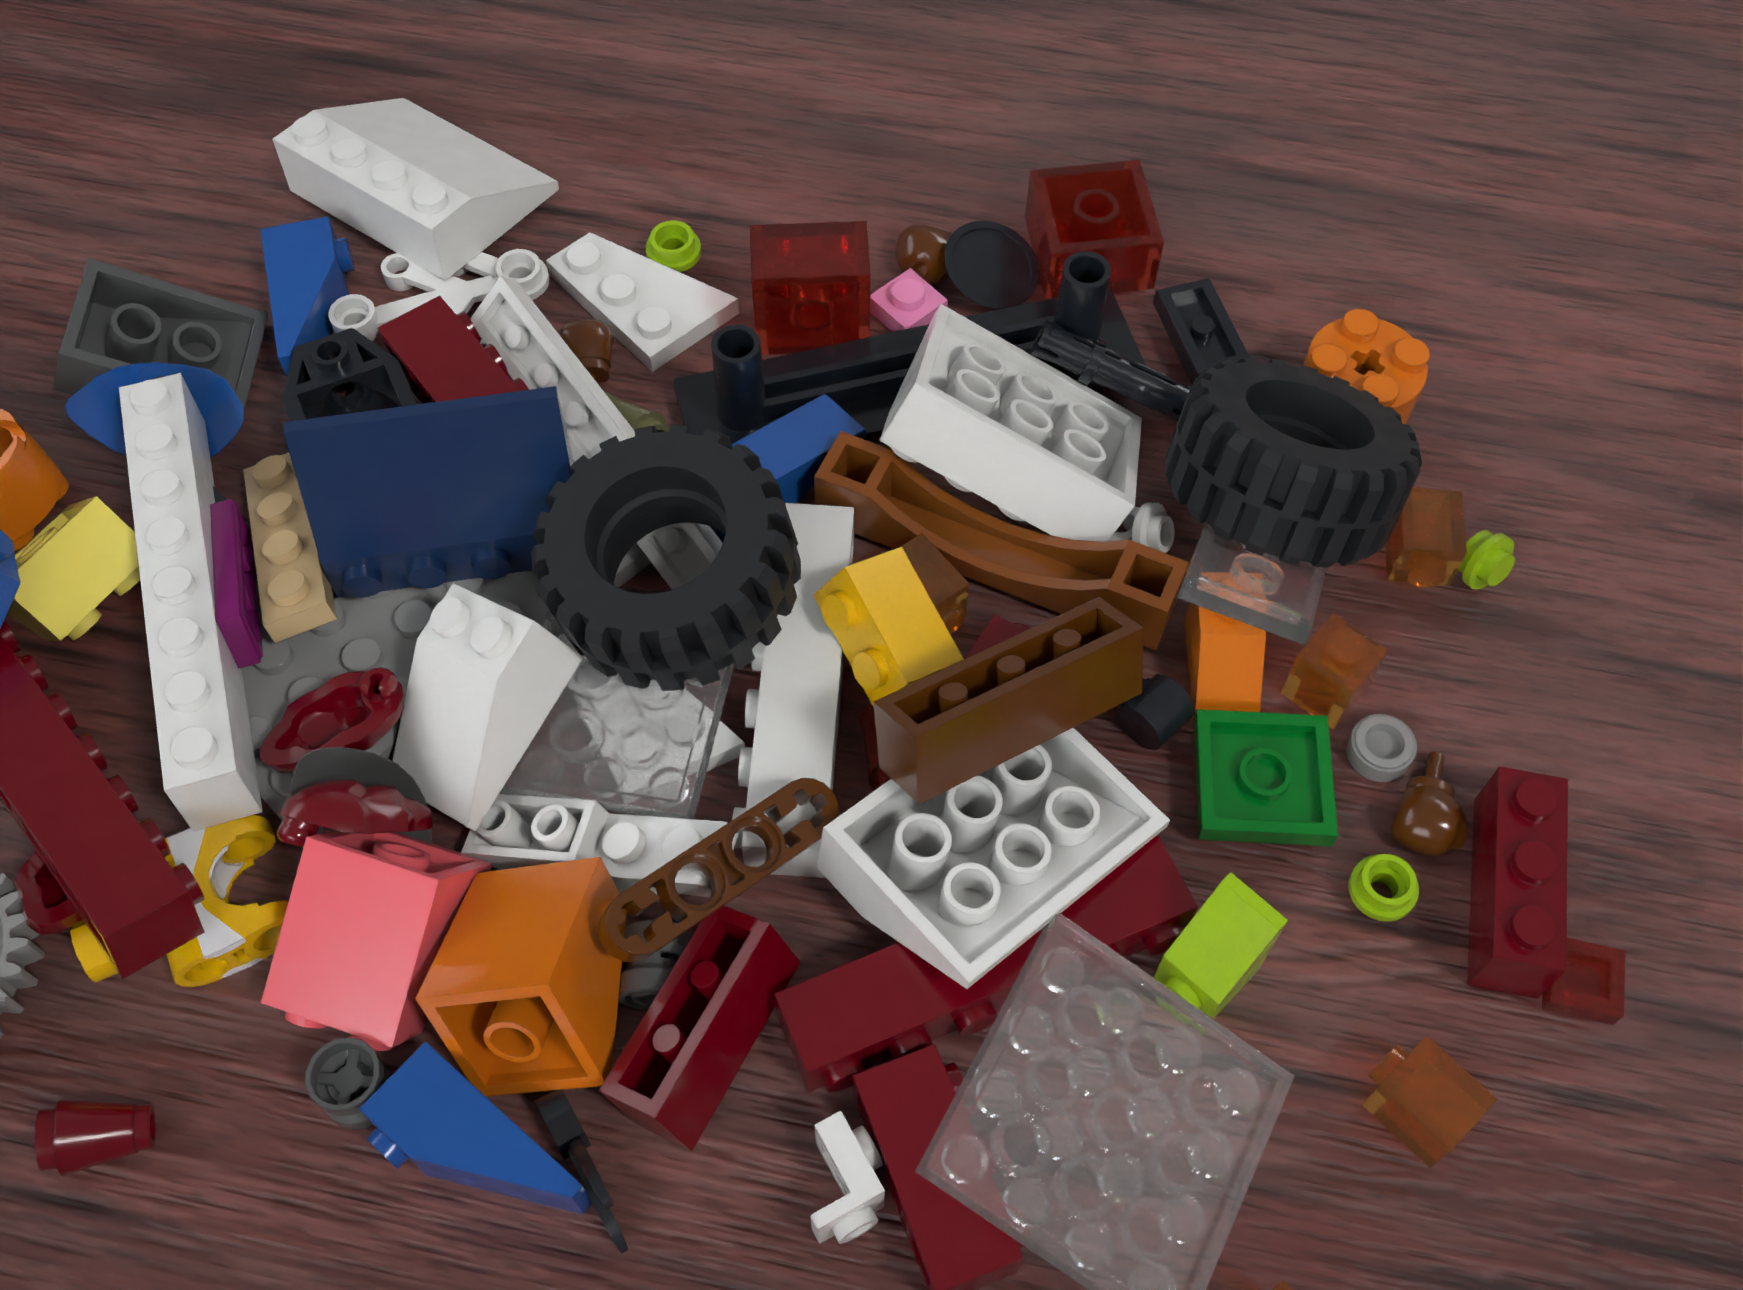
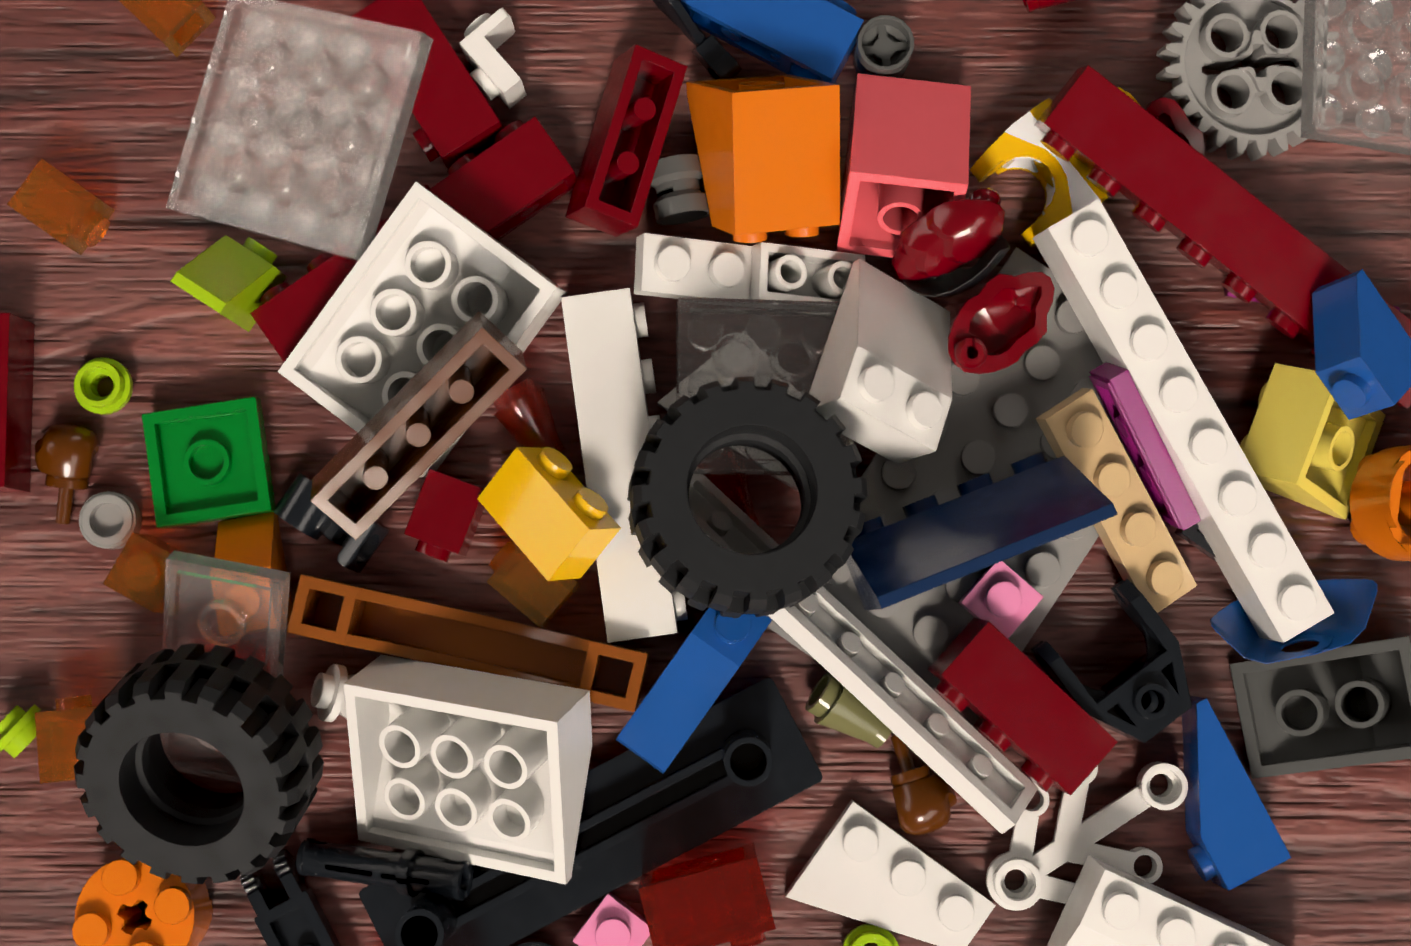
camera: 170 degrees right, 25 degrees up
(719, 864) = (641, 249): reddish brown beam -> none

